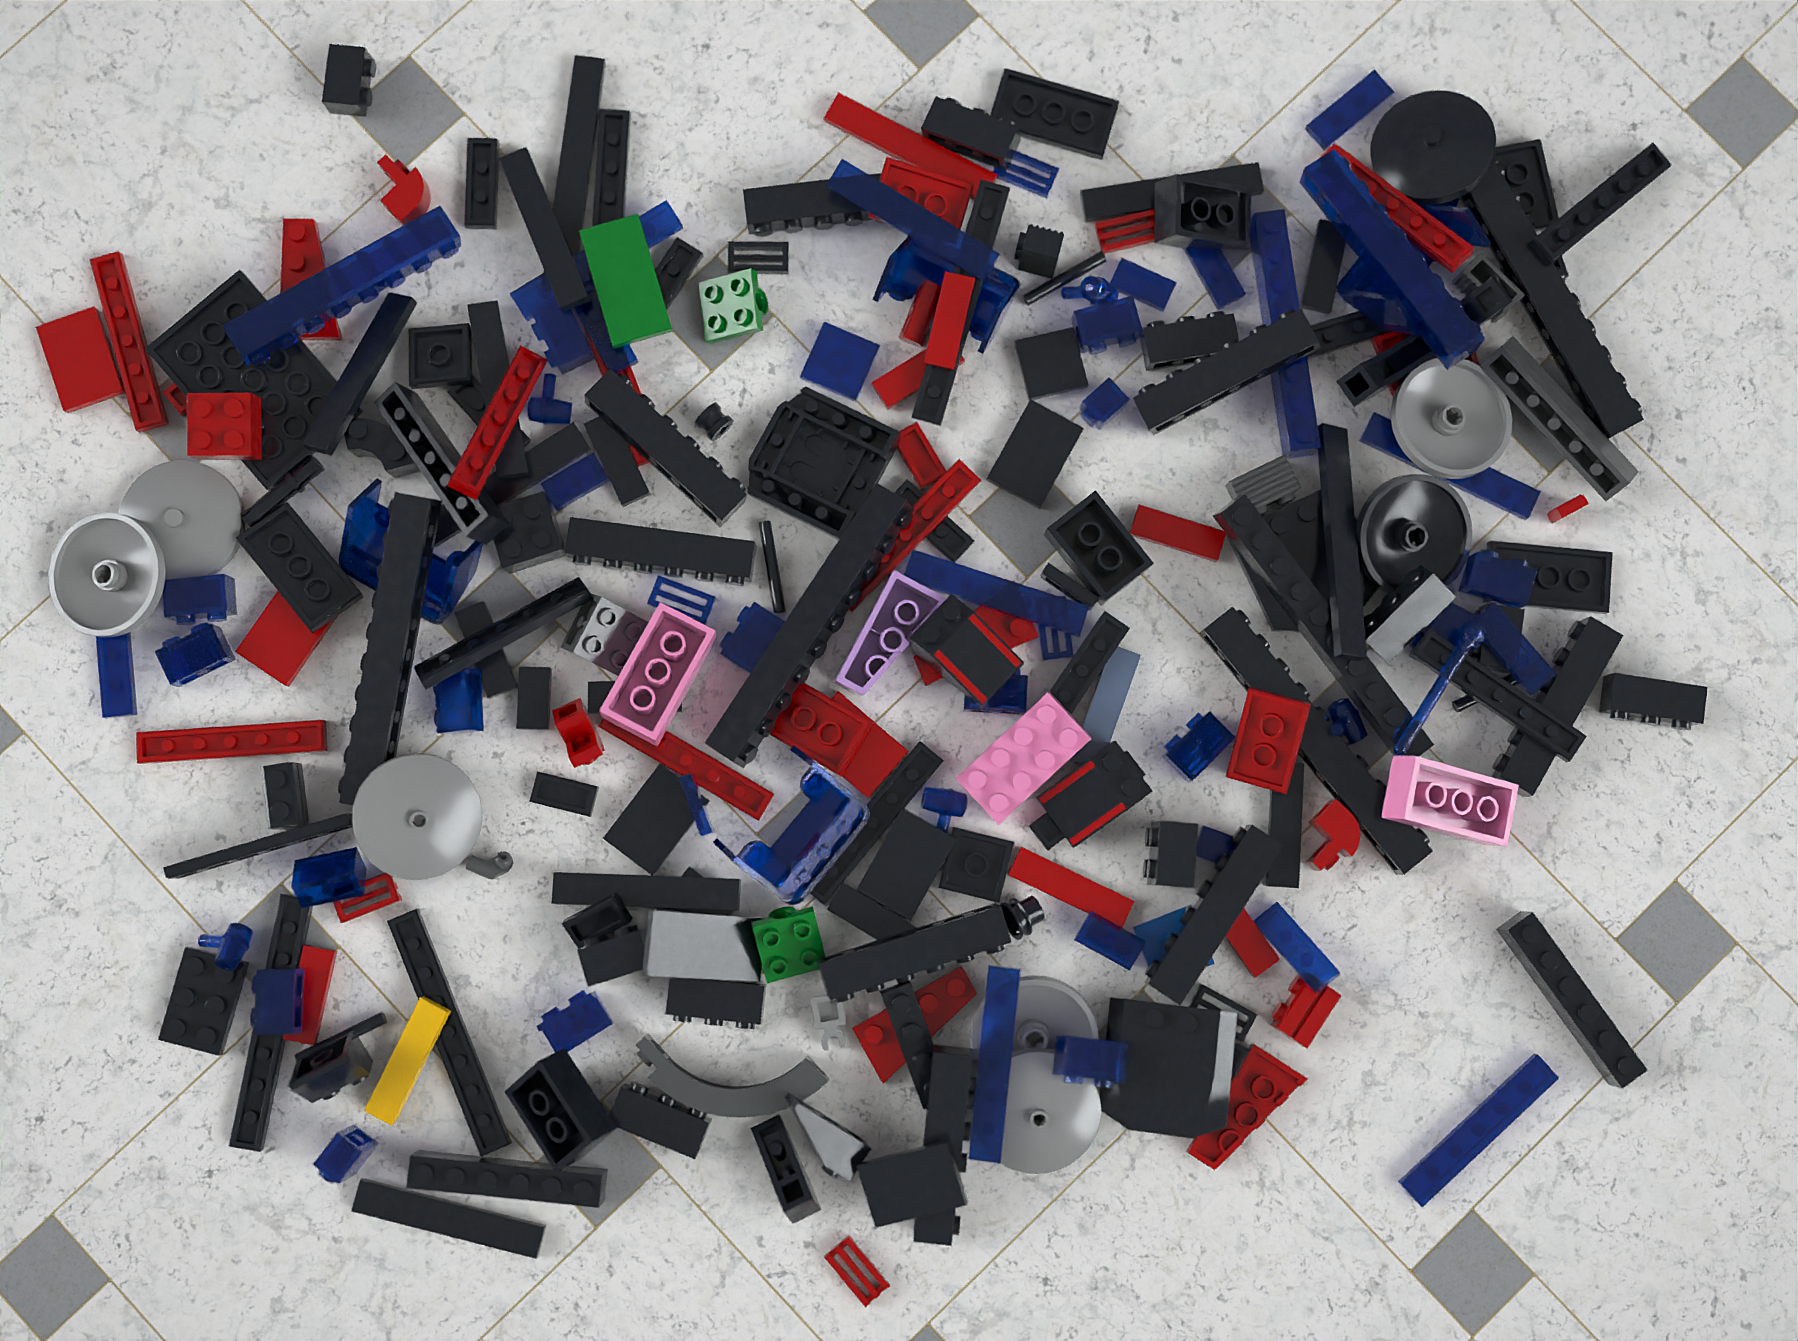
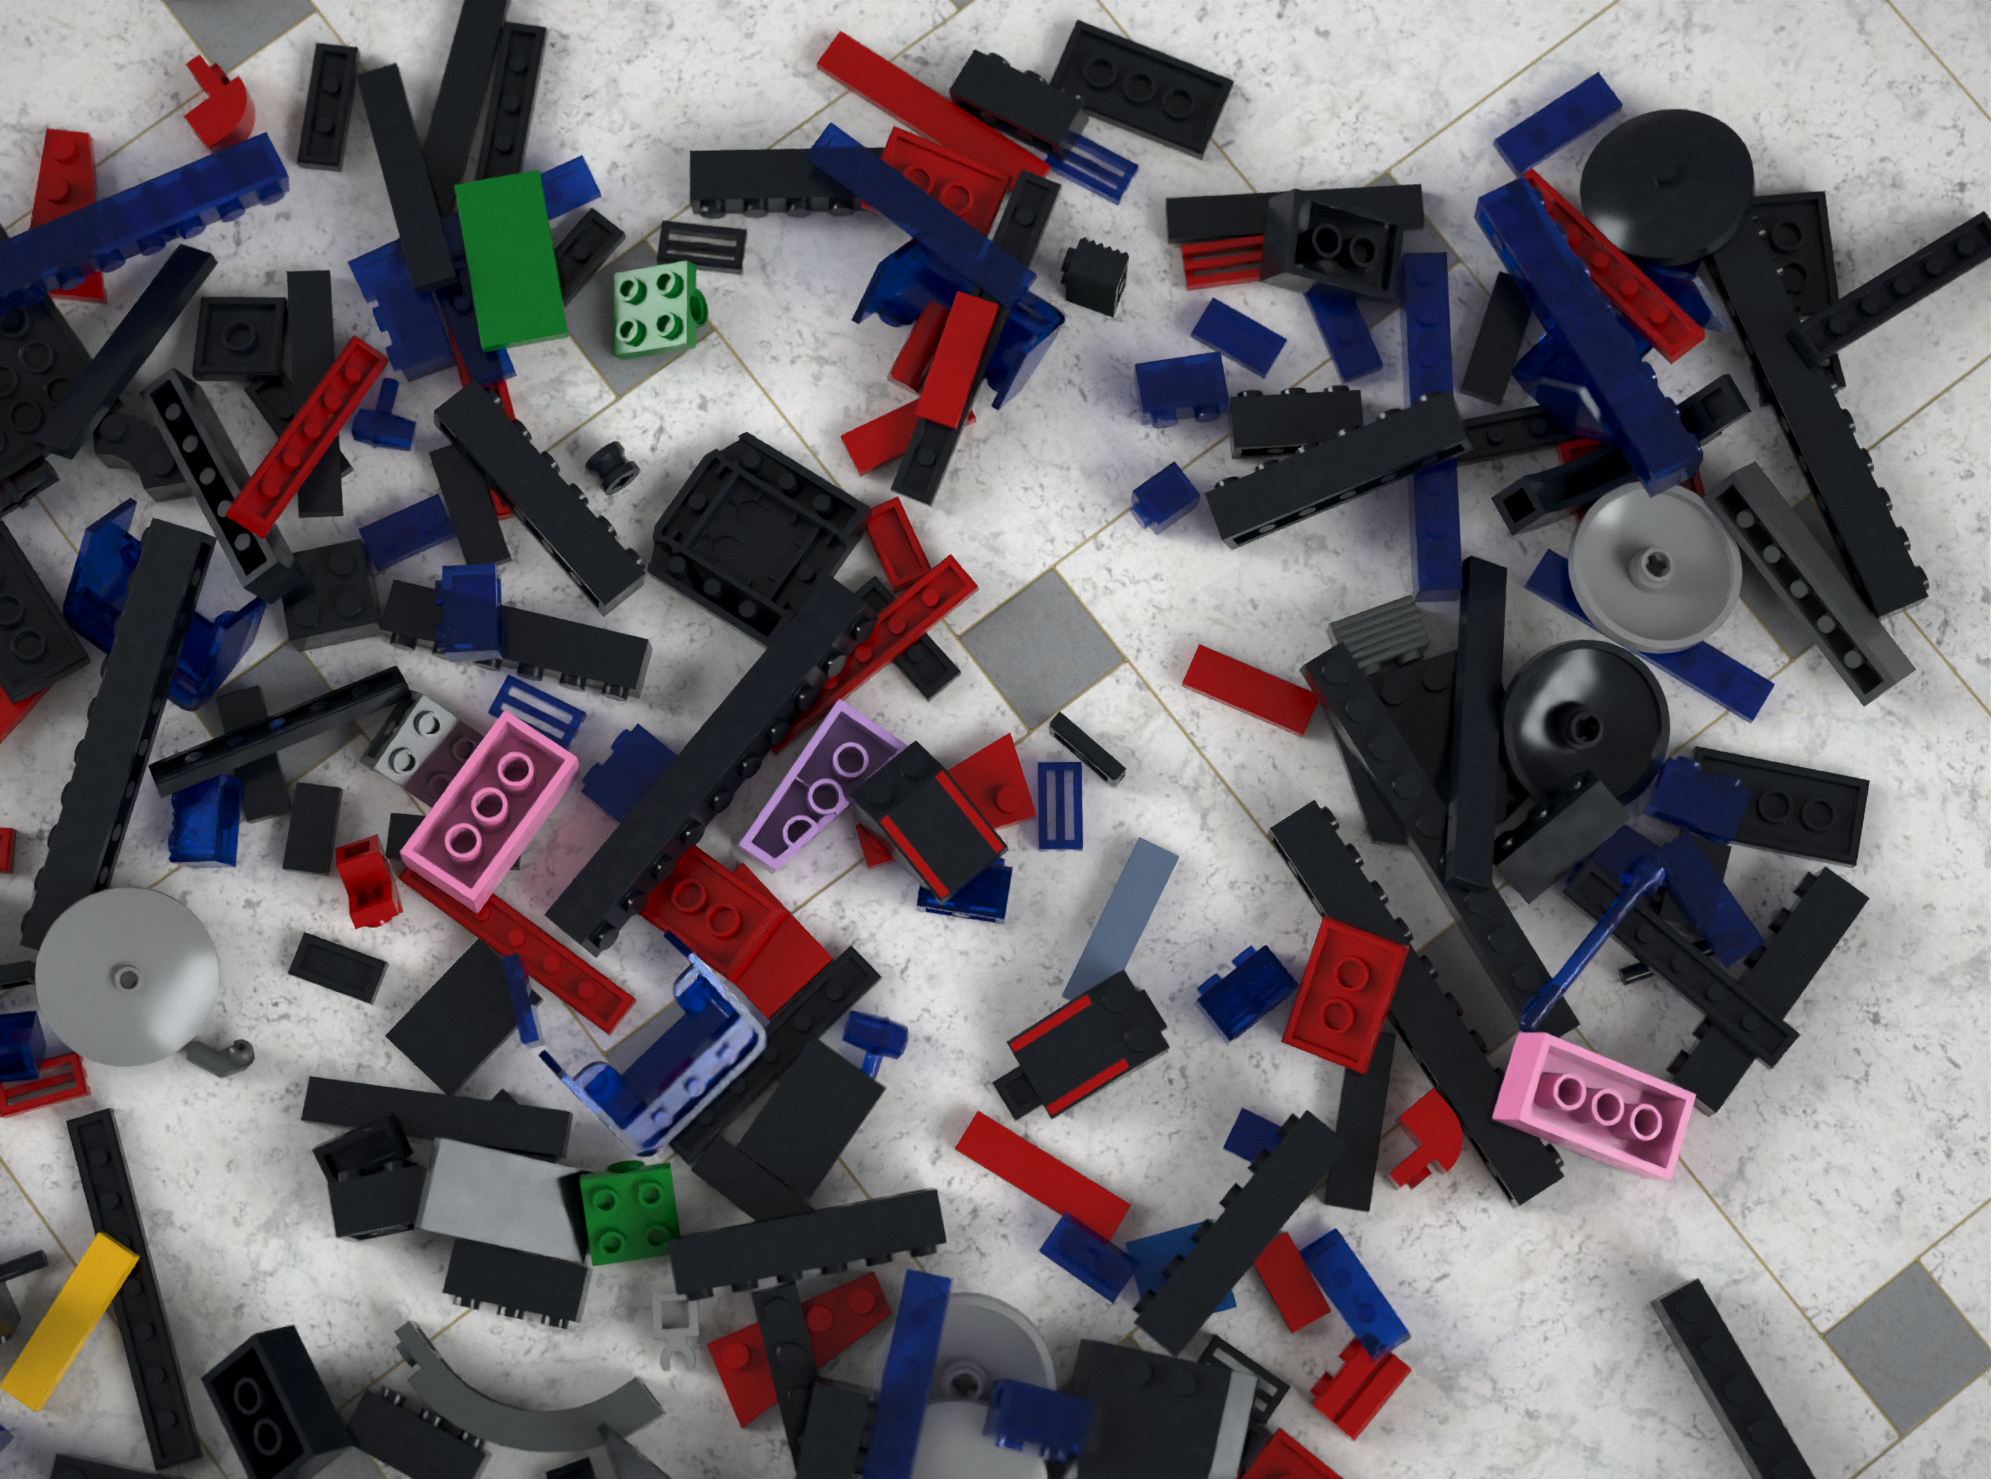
camera: 10 degrees right, 5 degrees down
(541, 462) = (363, 501): black tile -> none
(576, 1022) = (315, 1292): clear blue bracket -> none
(628, 535) = (470, 612): none -> clear blue brick
(772, 567) = (670, 679): black bar -> none
(840, 361) = (799, 403): clear blue tile -> none
(976, 865) = (911, 1130): black tile -> none
(997, 593) = (983, 748): clear blue tile -> none
(1022, 915) = (967, 1208): black piece -> none
(1023, 758) = (993, 982): bright pink brick -> none
(1035, 454) = (1060, 559): black tile -> none
(1051, 364) = (1097, 435): black tile -> none
(1064, 278) = (1129, 318): black bar -> none
(1088, 661) = (1092, 869): black plate -> none
(1093, 289) = (1166, 338): clear blue piece -> none
(1098, 548) = (1133, 699): black brick -> none
(1171, 854) = (1189, 1141): black brick -> none
(1347, 720) = (1462, 979): clear blue piece -> none
(1479, 272) = (1718, 361): dark grey brick -> none
(1567, 508) = (1810, 711): red tile -> none
(1653, 701) = (1906, 997): black brick -> none

